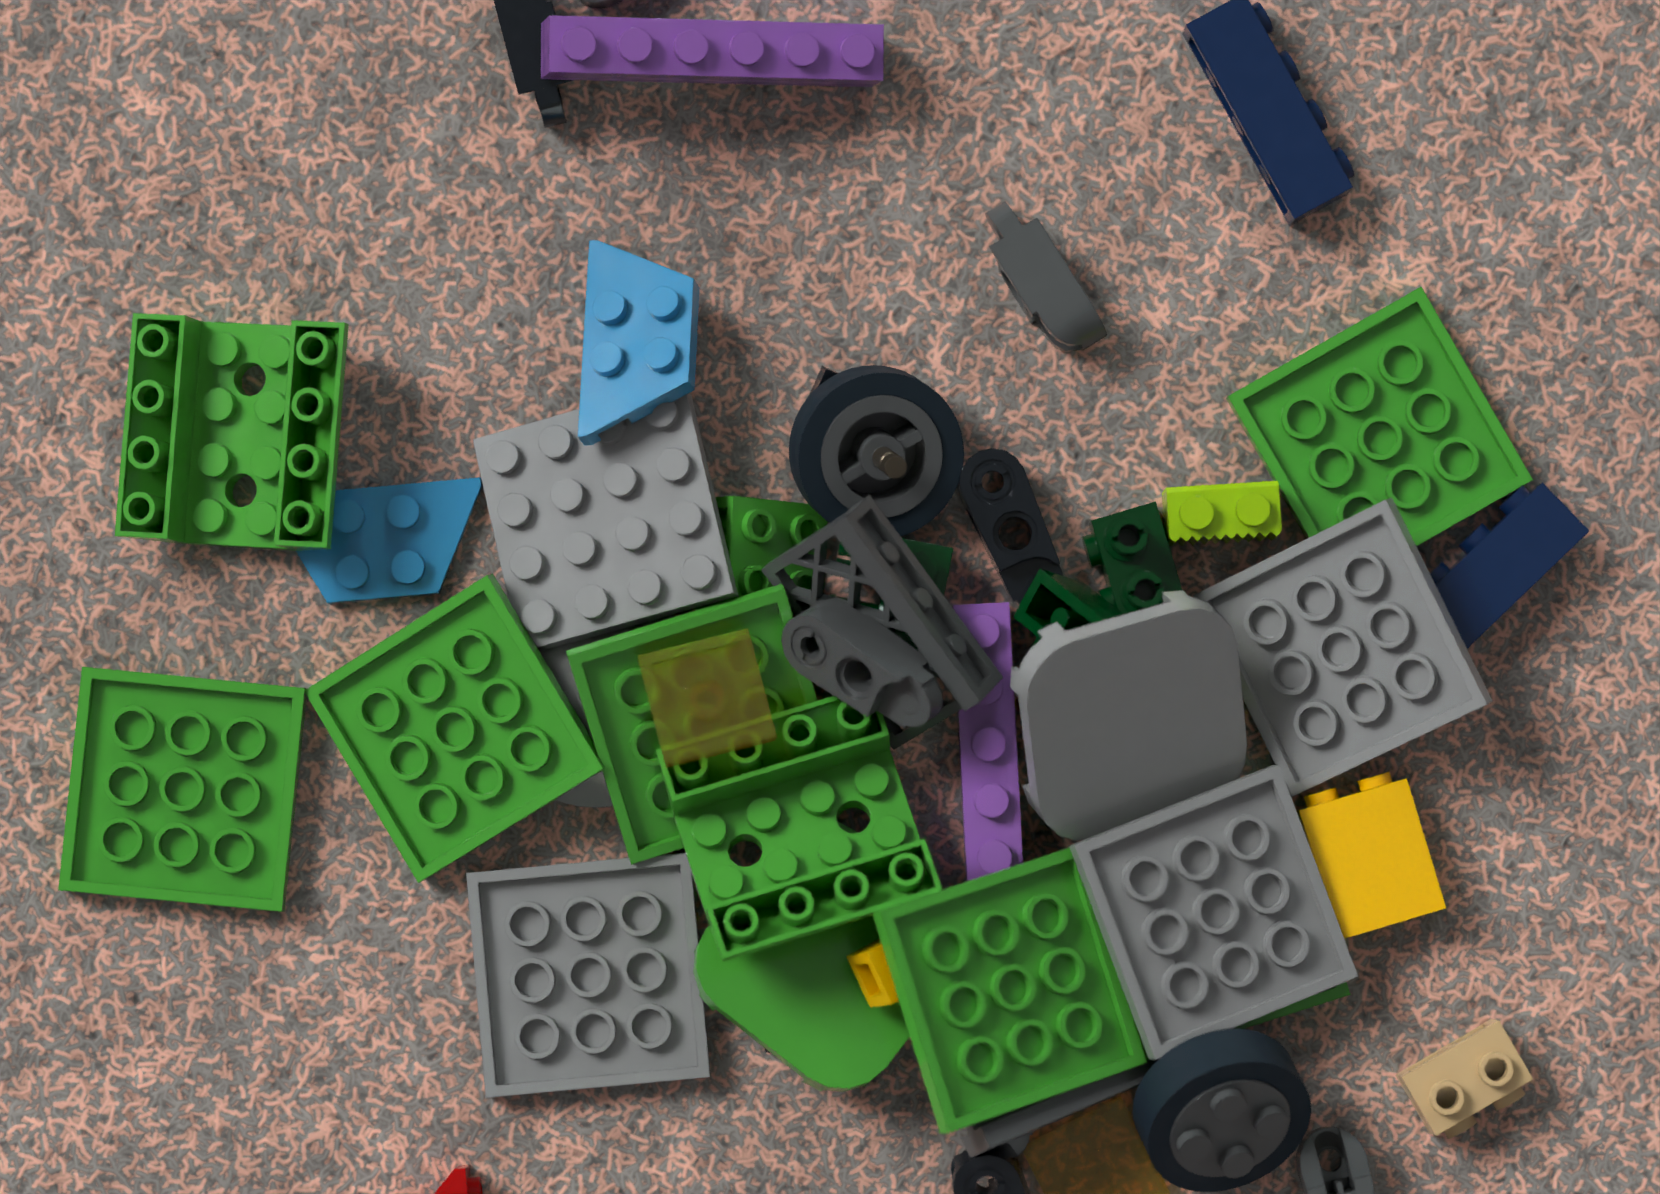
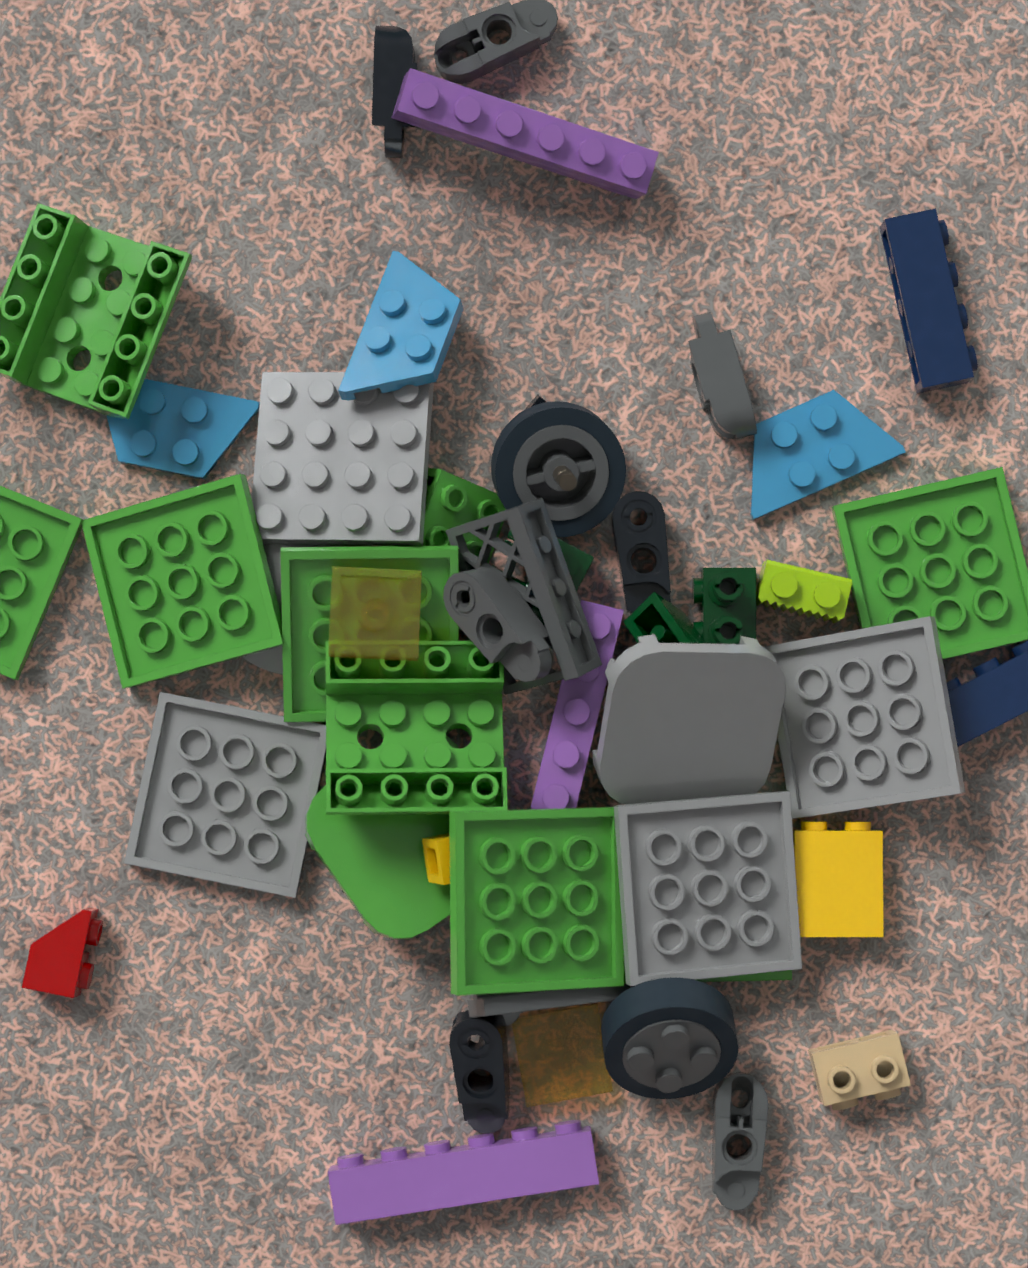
camera: 20 degrees right, 0 degrees up
(1182, 334) = (813, 450): none -> dark azure wing

